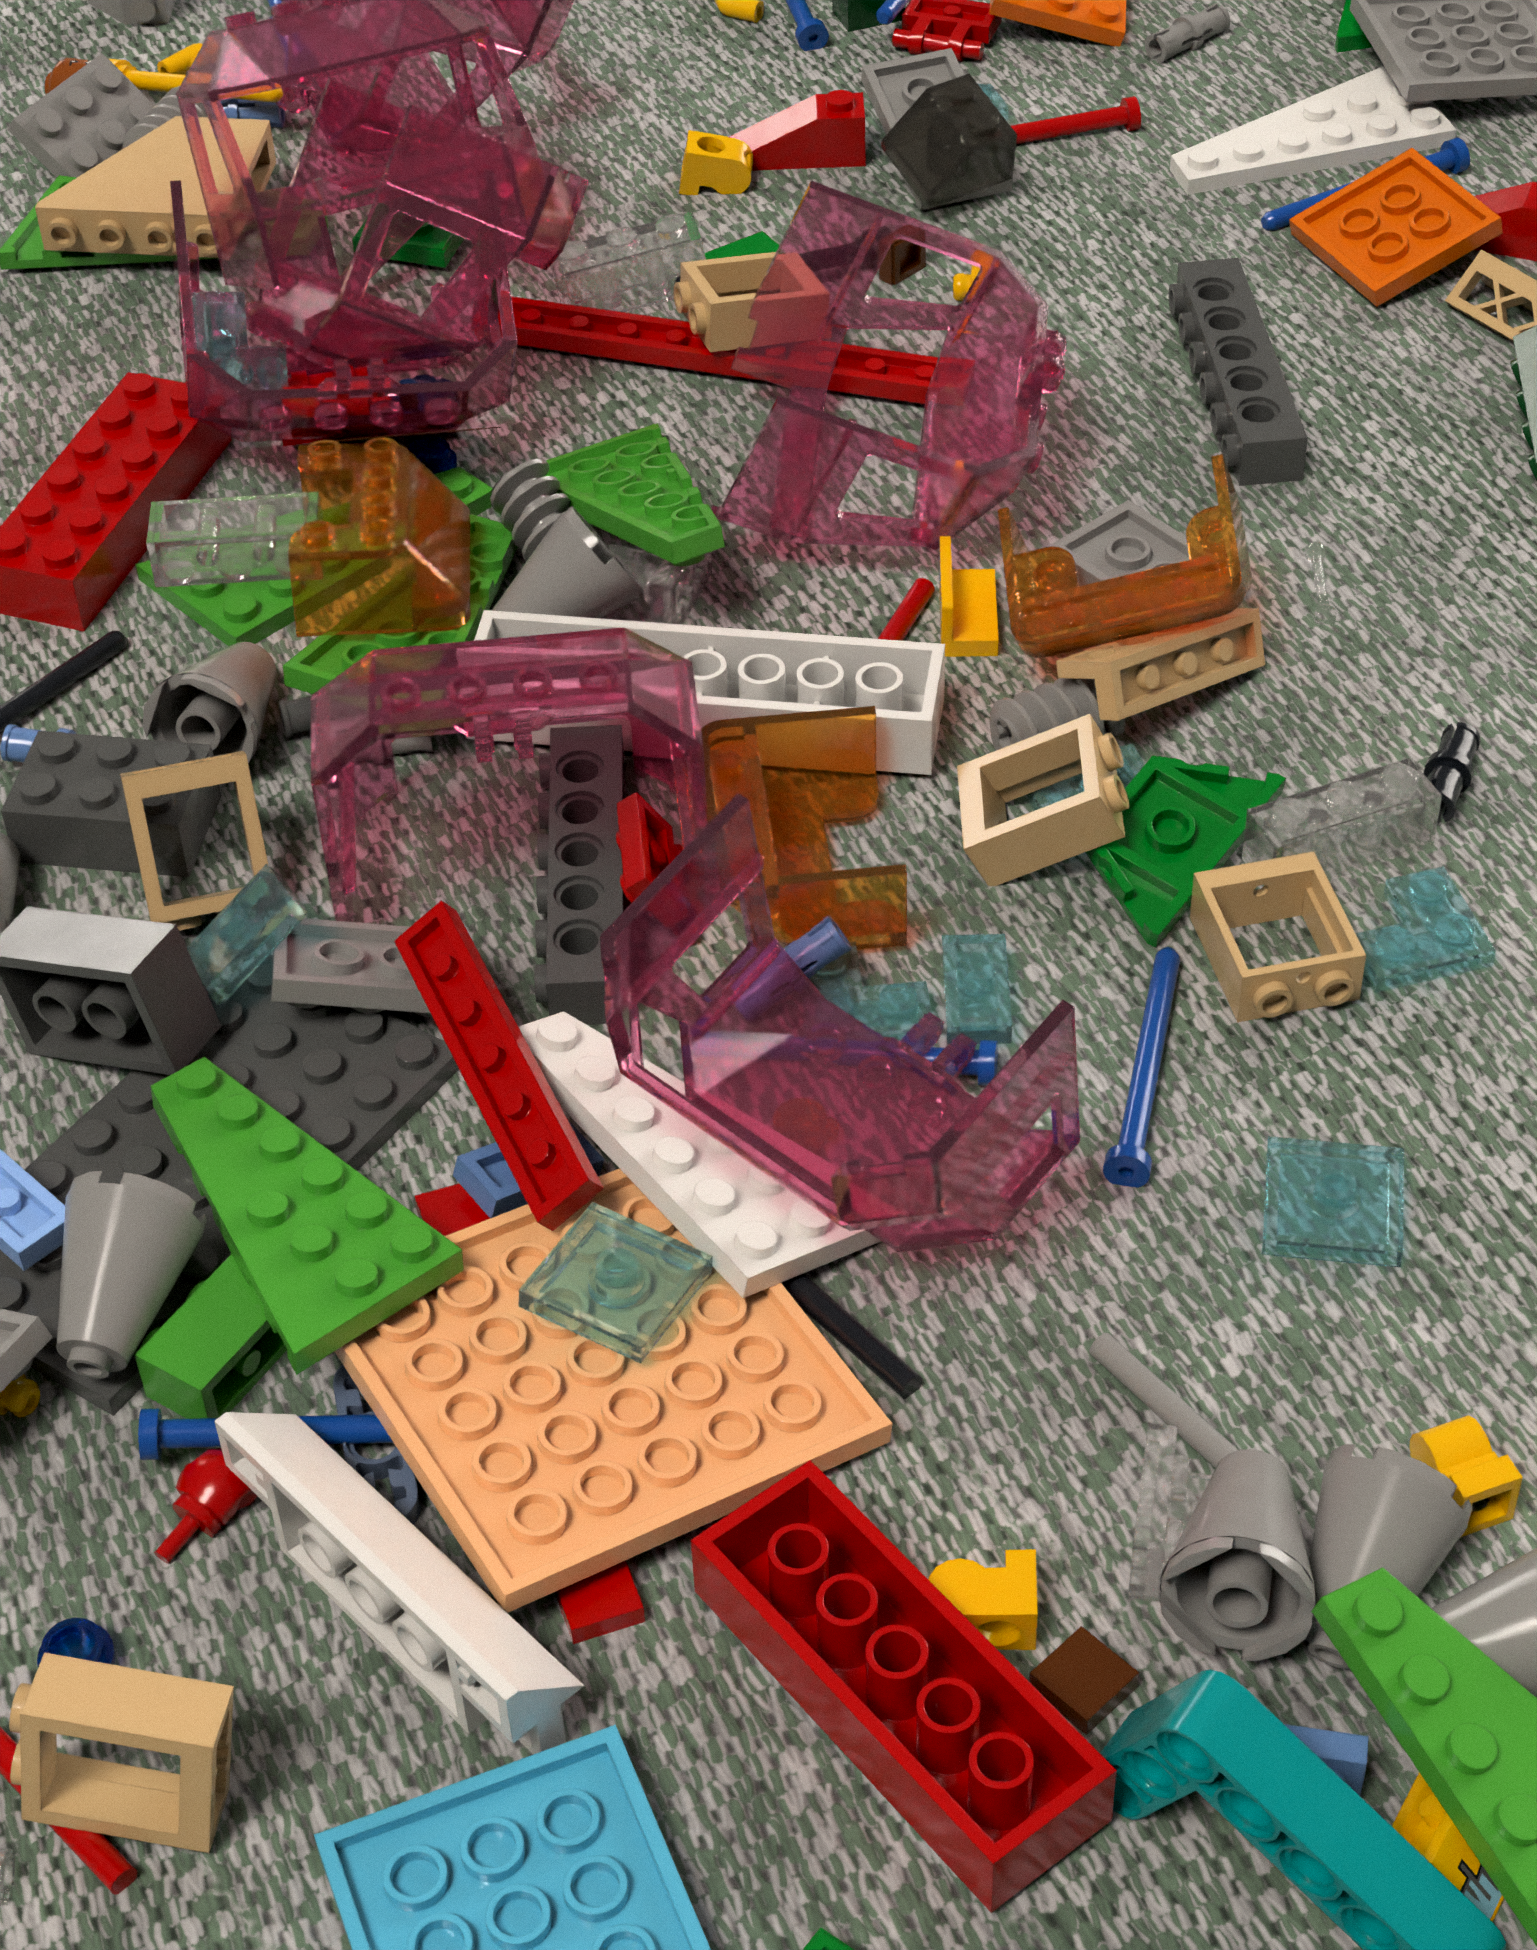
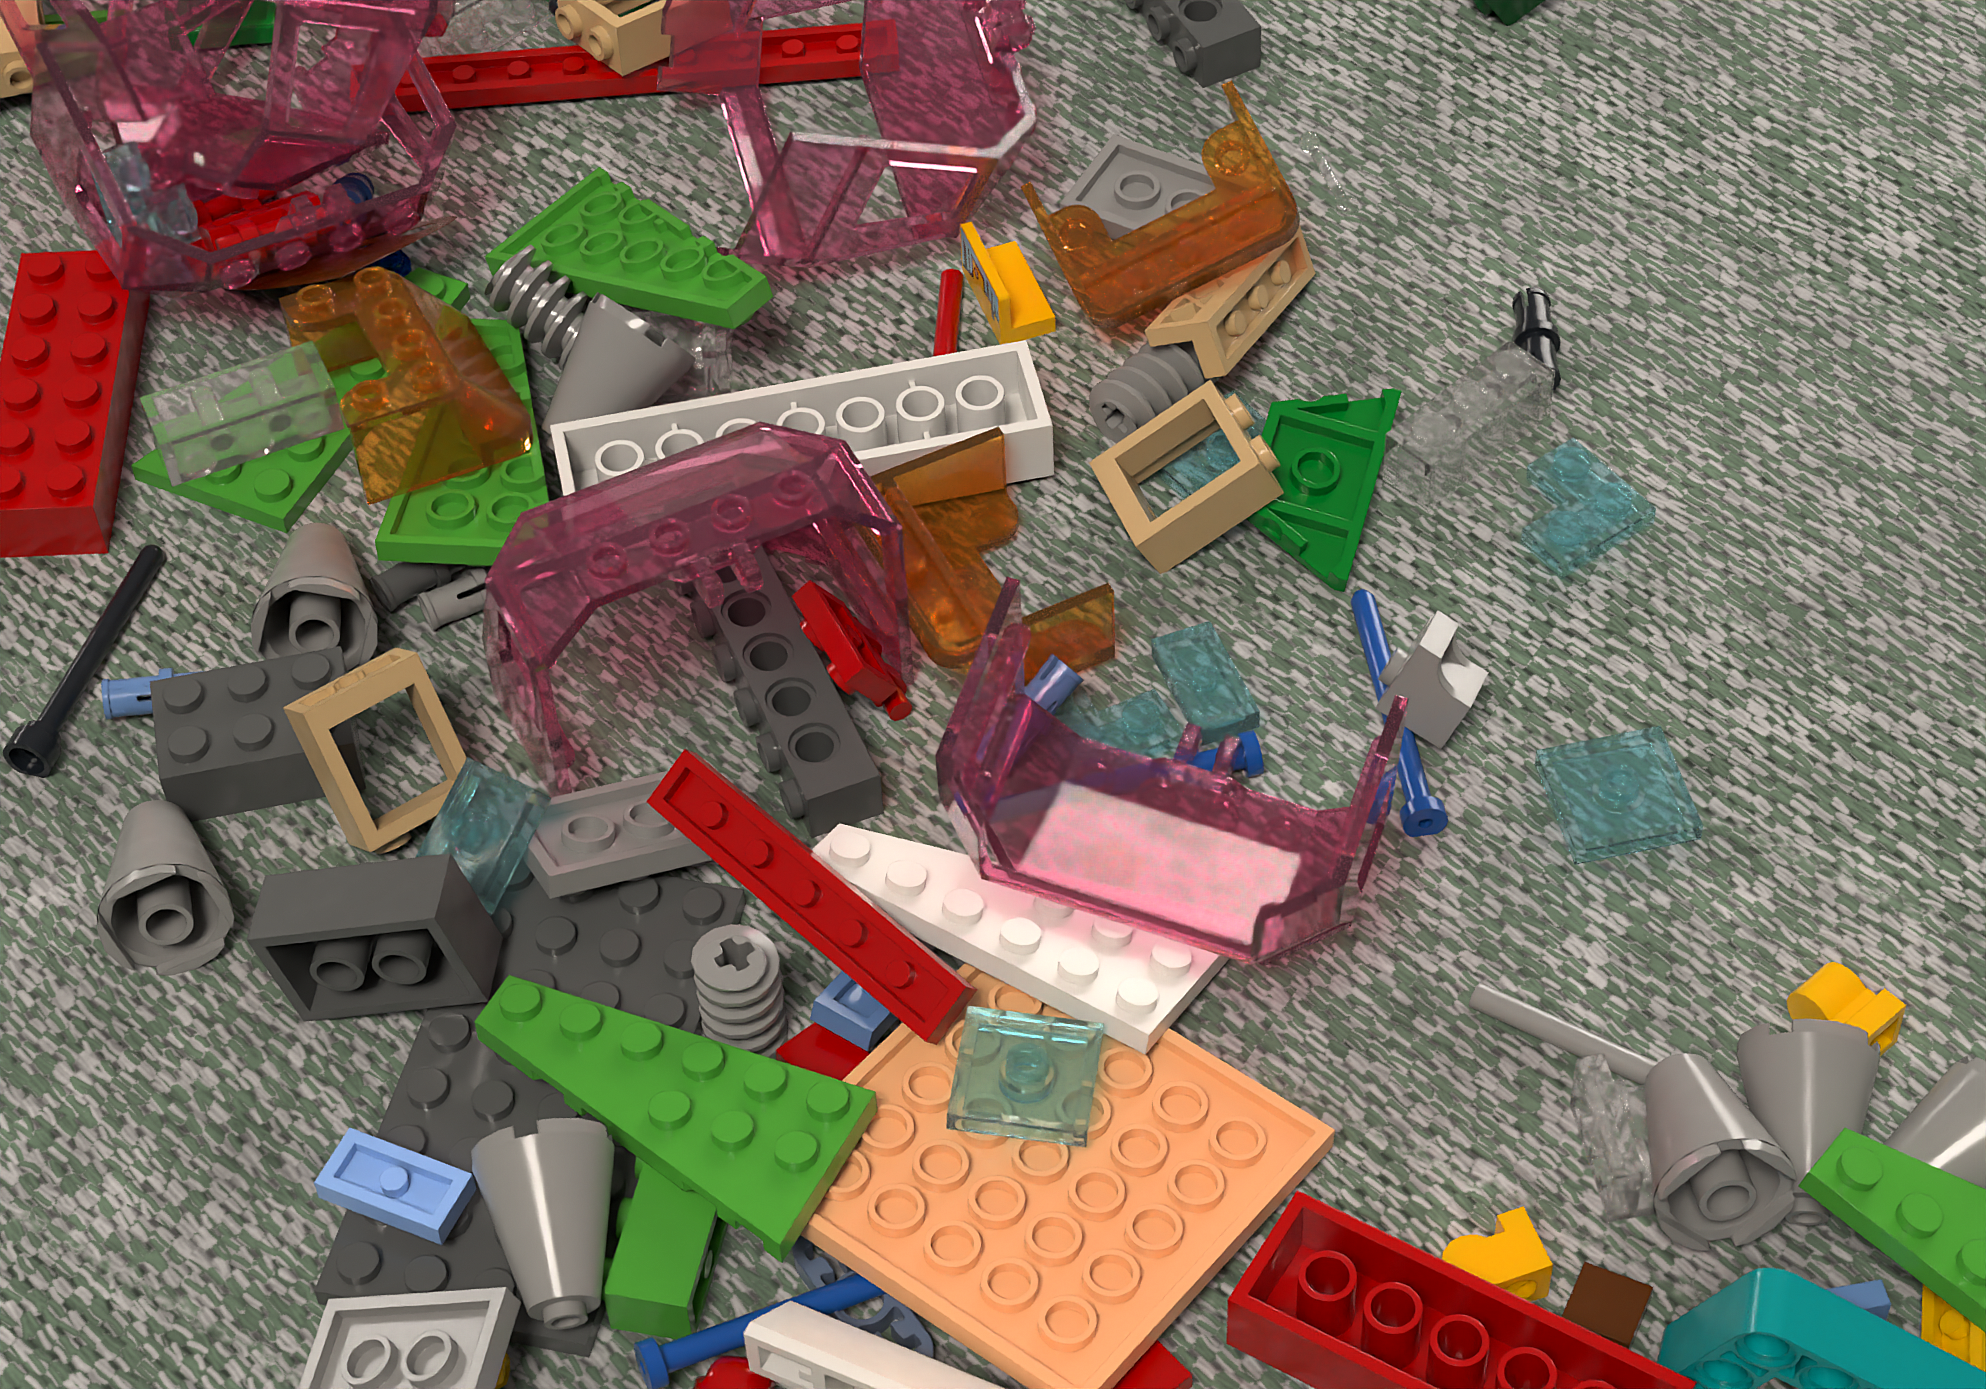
camera: 20 degrees left, 5 degrees up
(396, 1129) = (740, 989): none -> light grey piece
(853, 1336) = (1254, 1058): black bar -> none
(1186, 1041) = (1434, 679): none -> light grey brick
(1291, 888) = (1433, 507): tan window -> none

